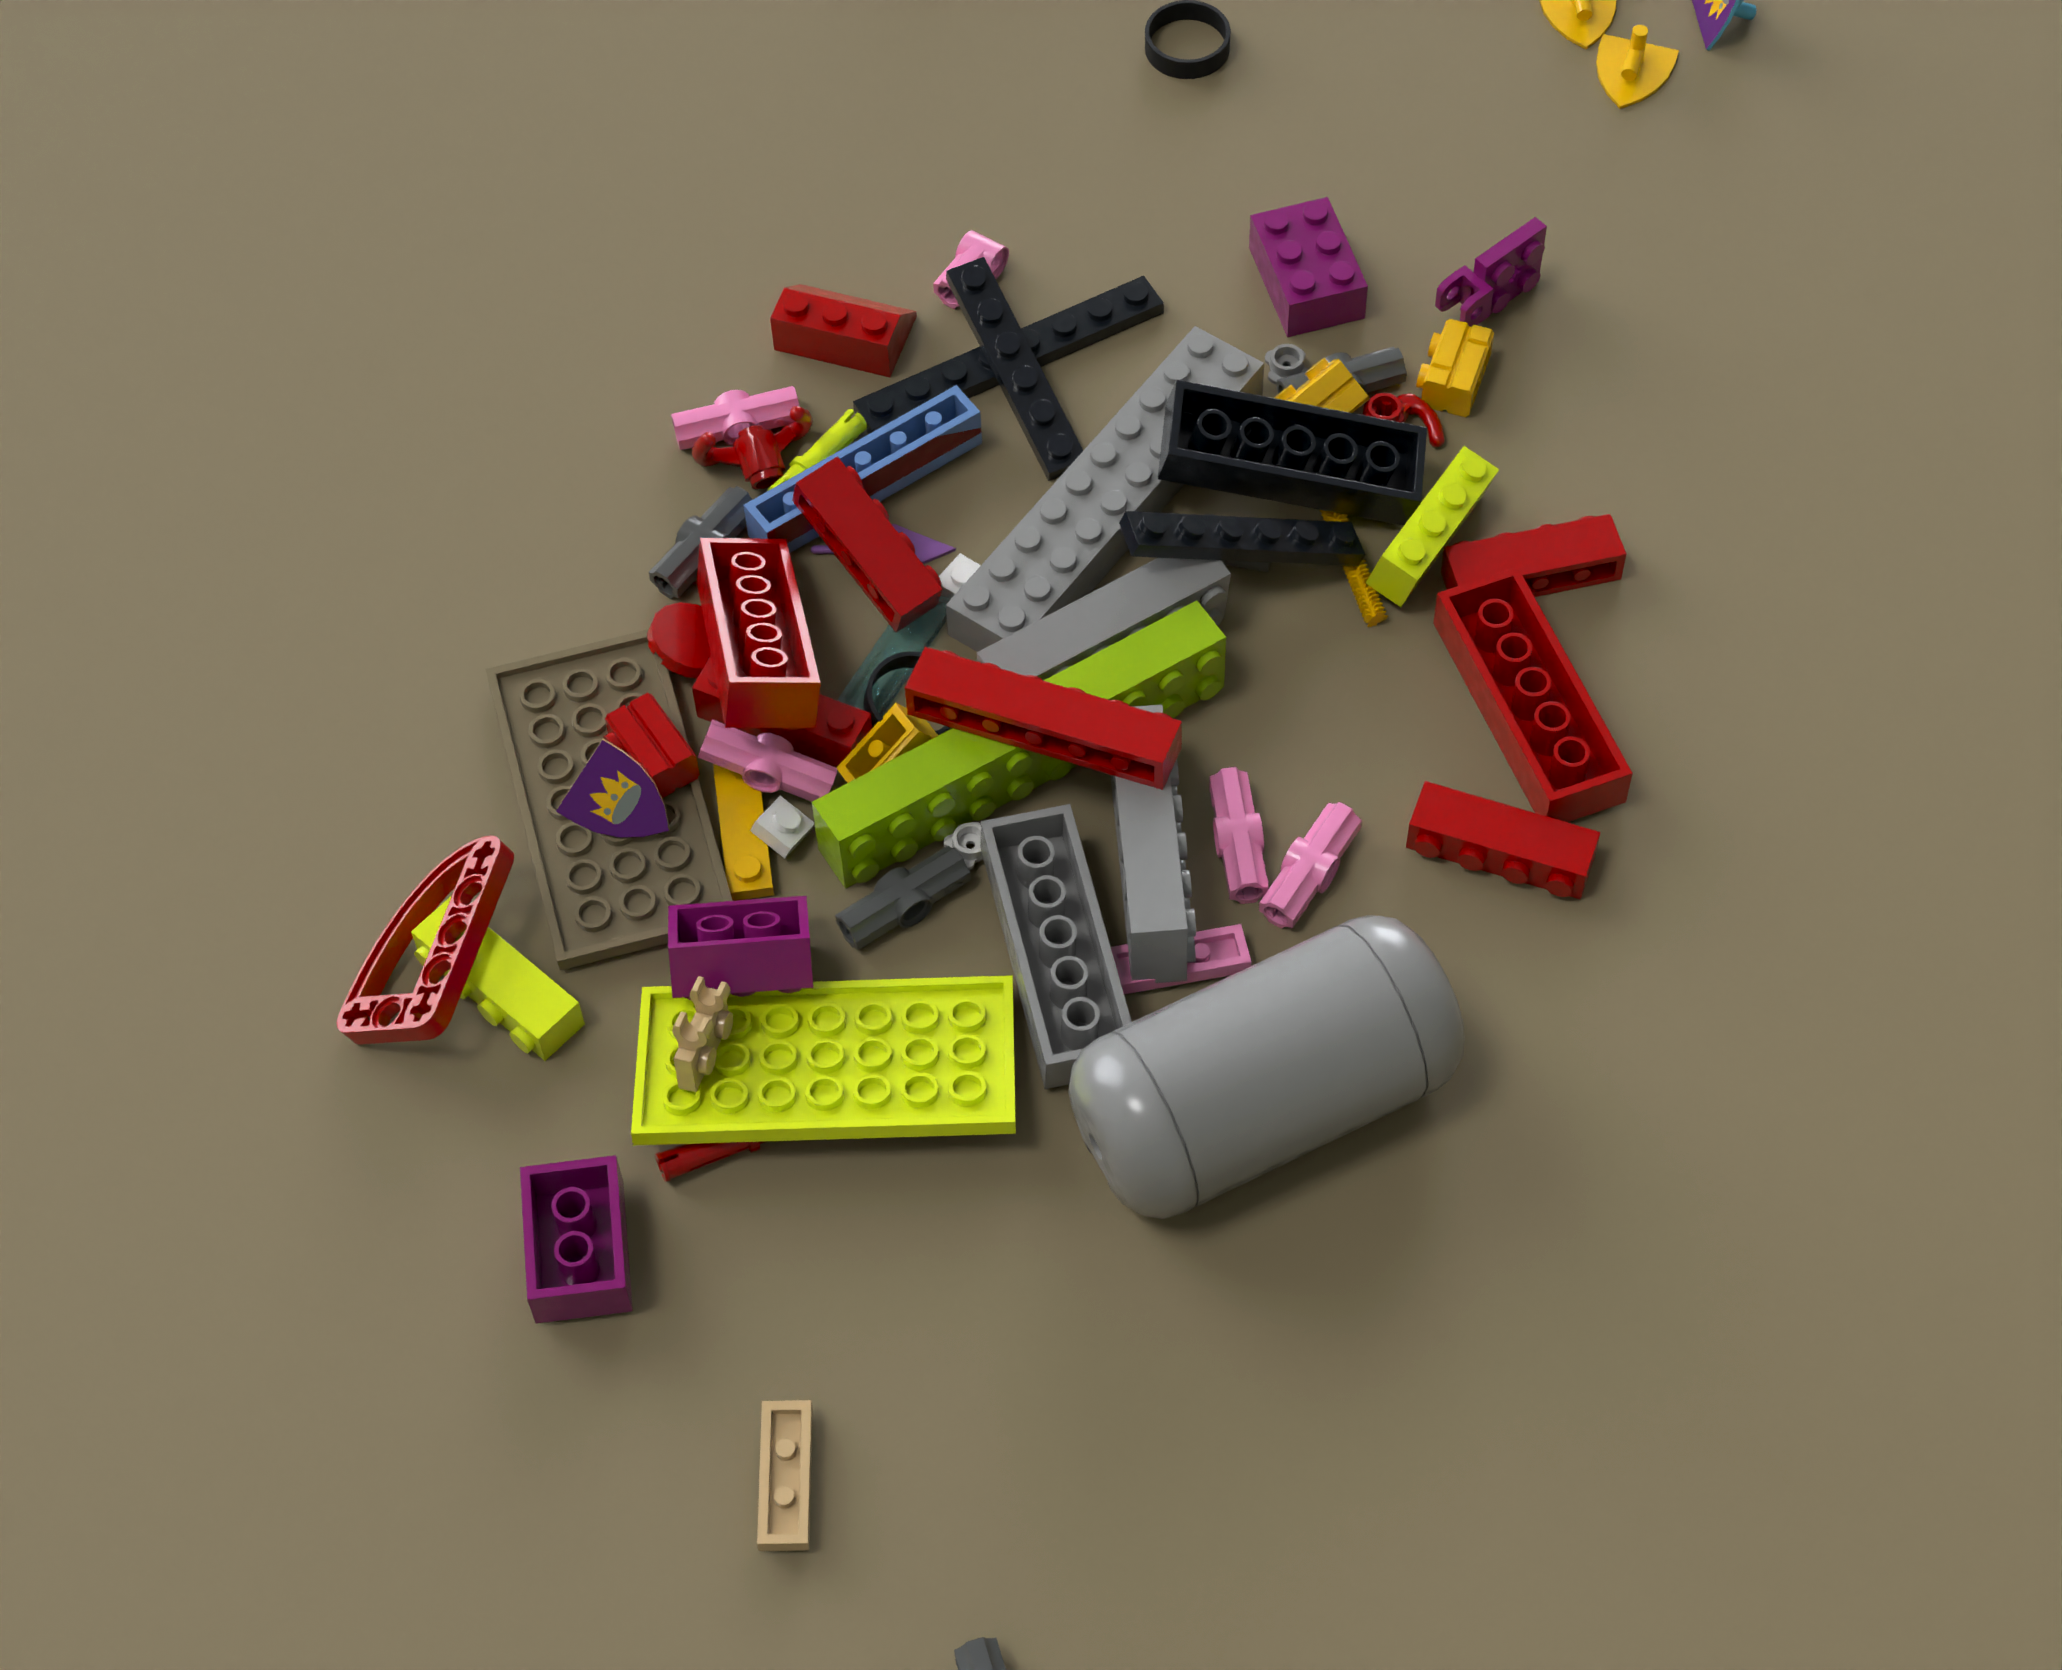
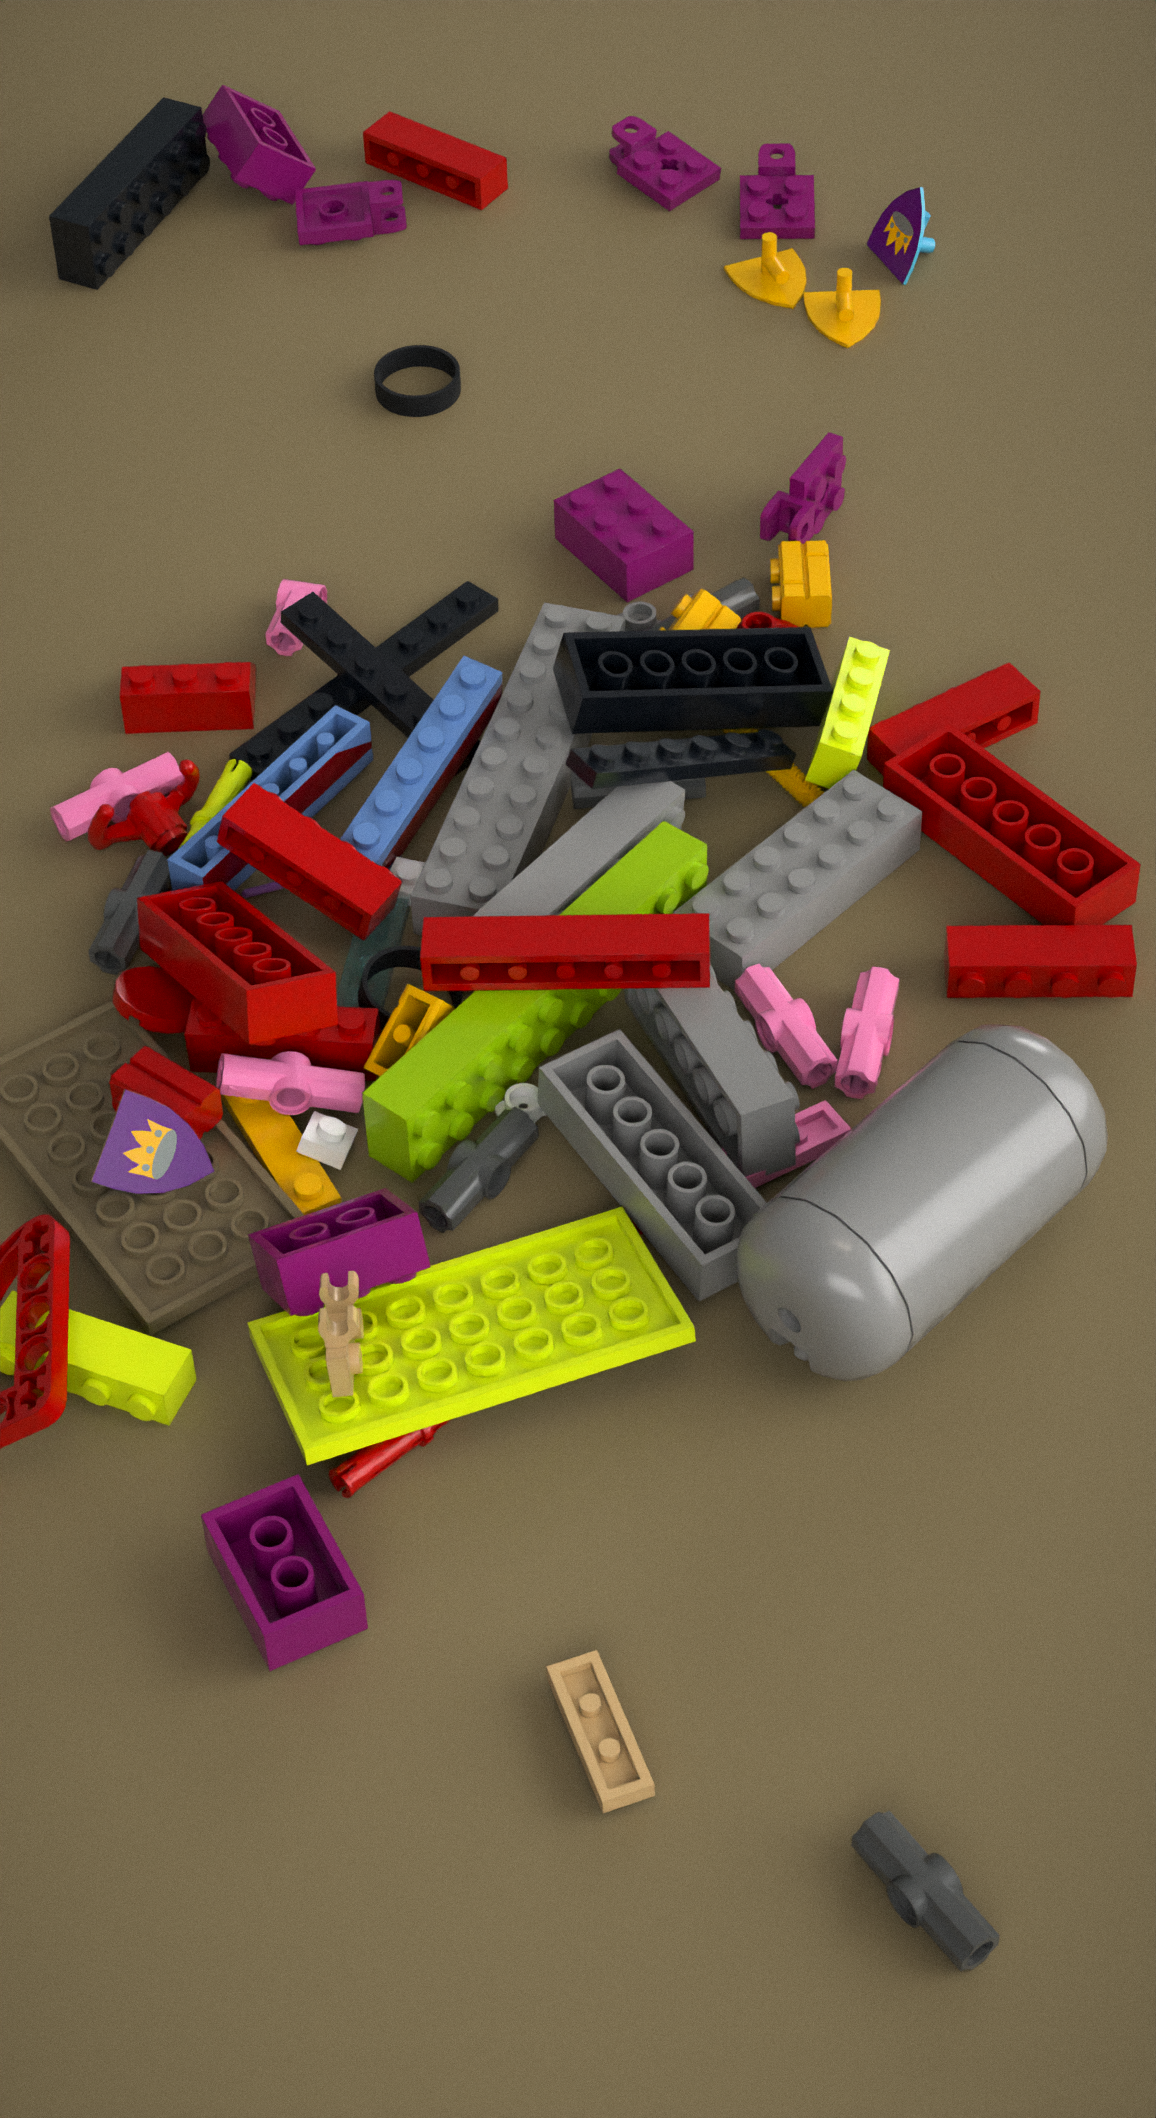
camera: 20 degrees left, 10 degrees down
(1011, 473) = (426, 763): none -> medium blue brick
(1314, 687) = (805, 875): none -> light grey brick

